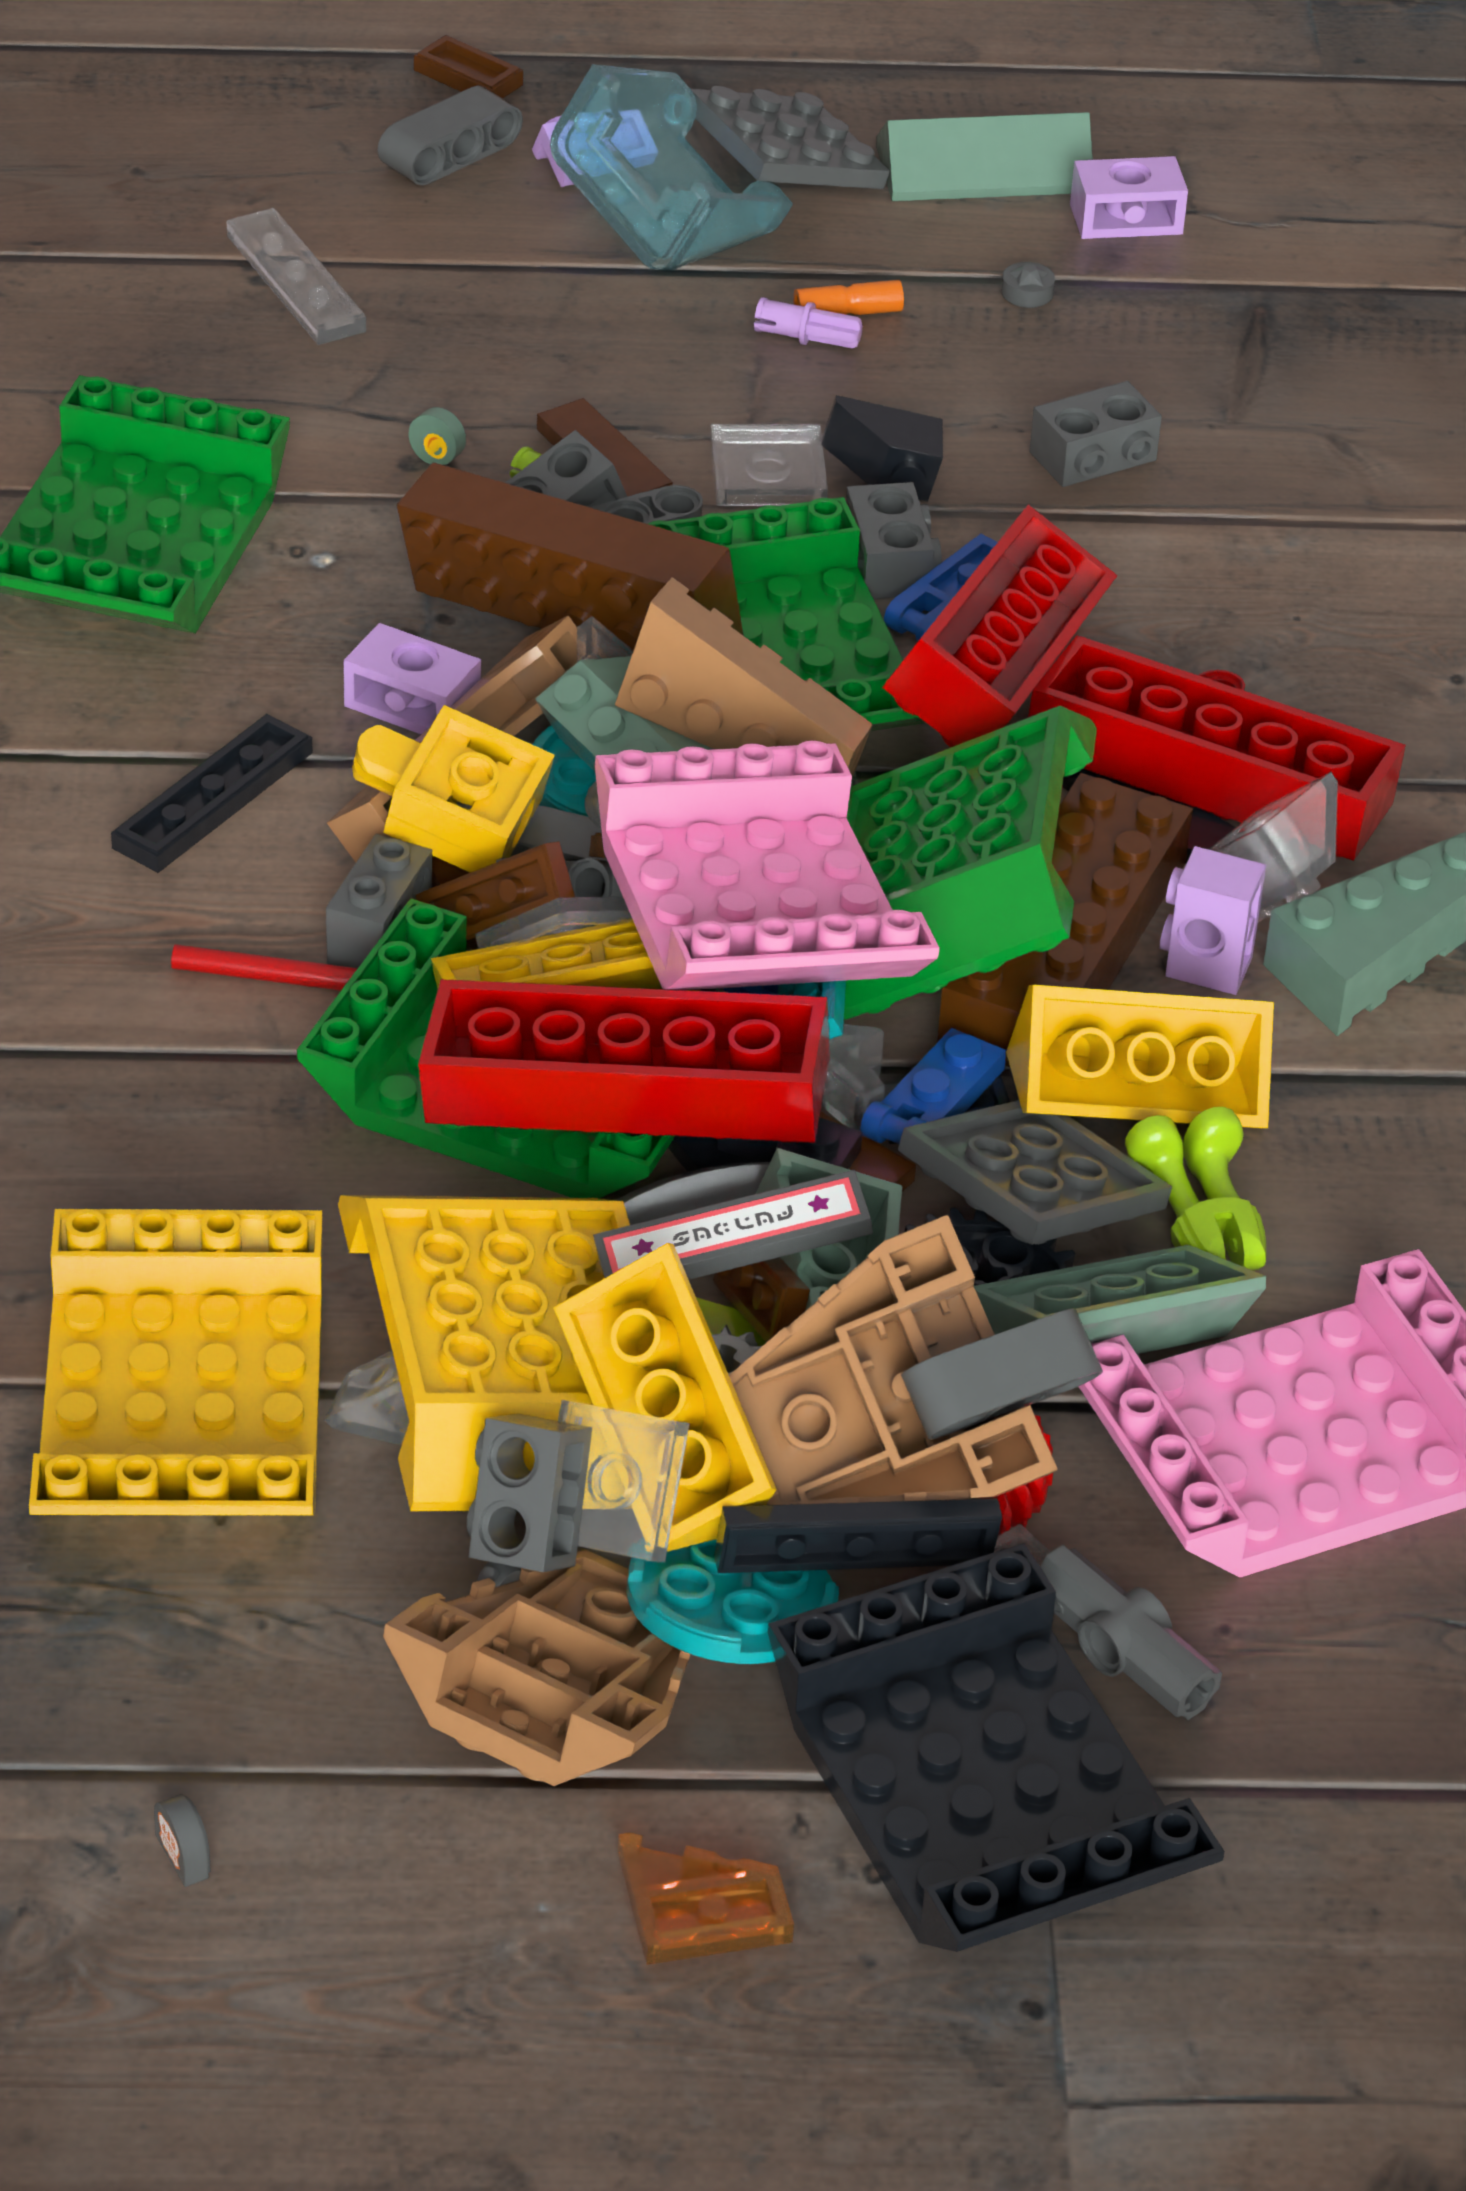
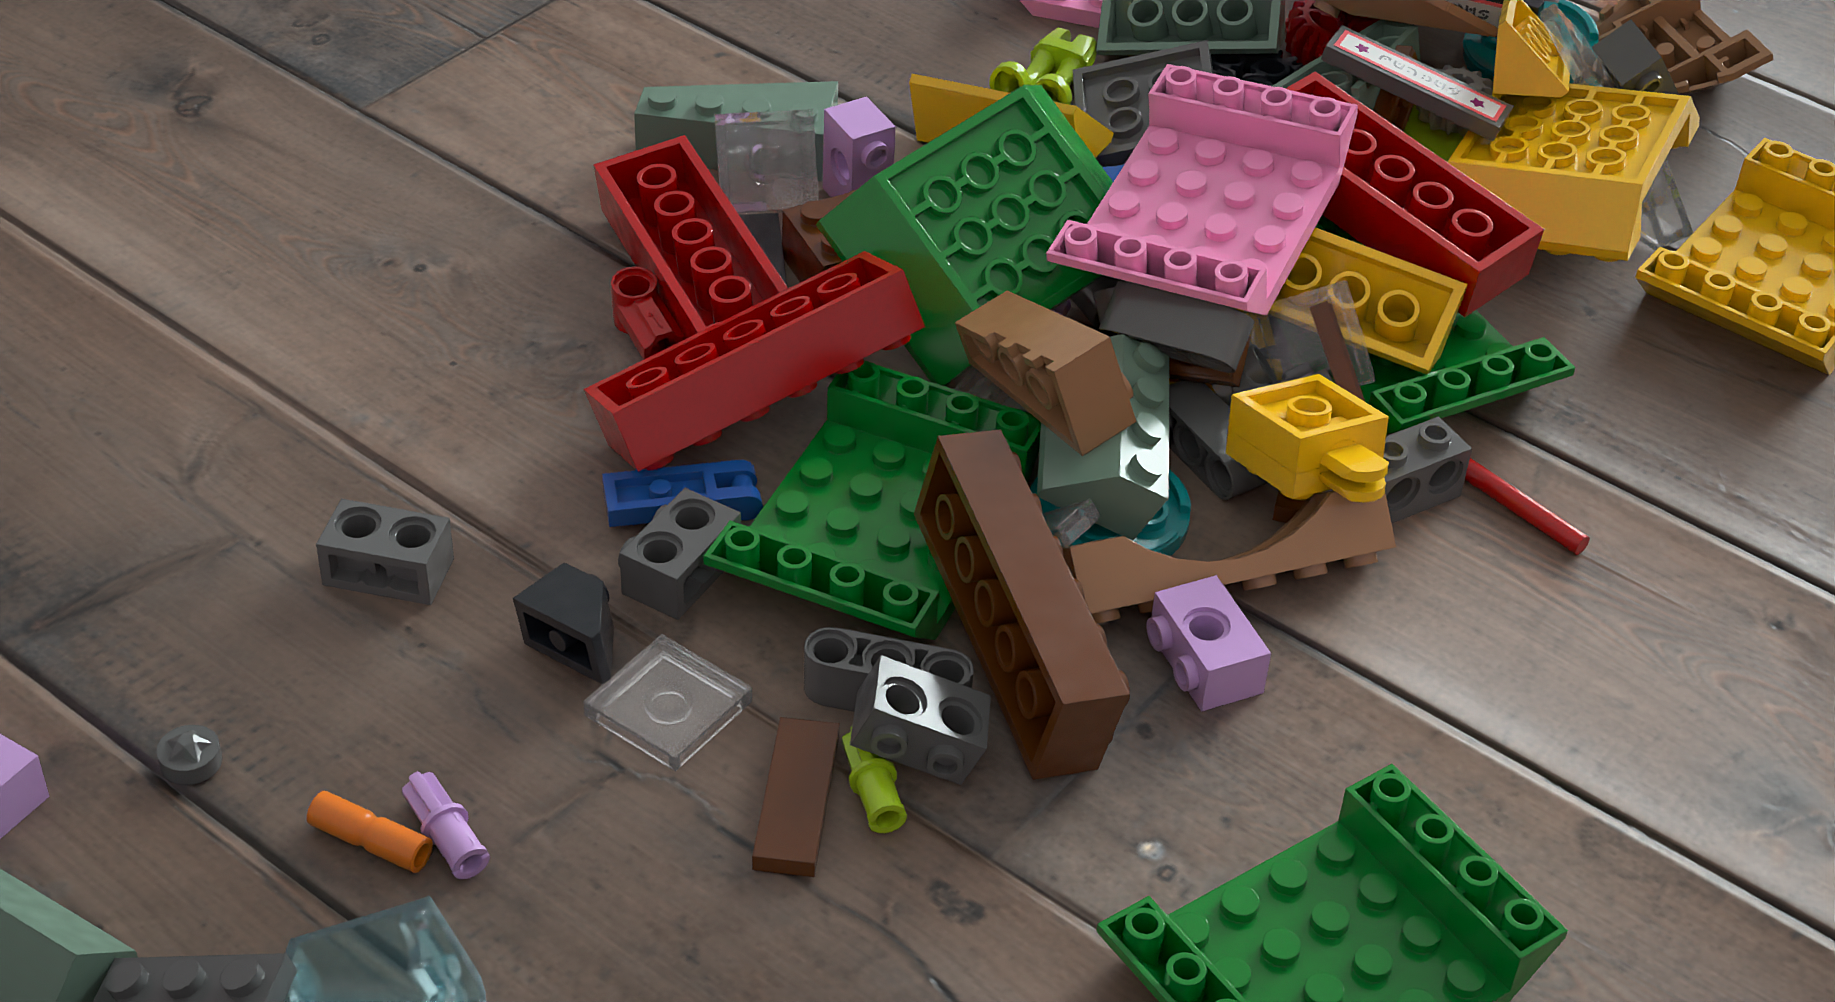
camera: 140 degrees left, 0 degrees up
(211, 793) = (1446, 662): black tile -> none
(437, 436) = (936, 887): sand green tile -> none

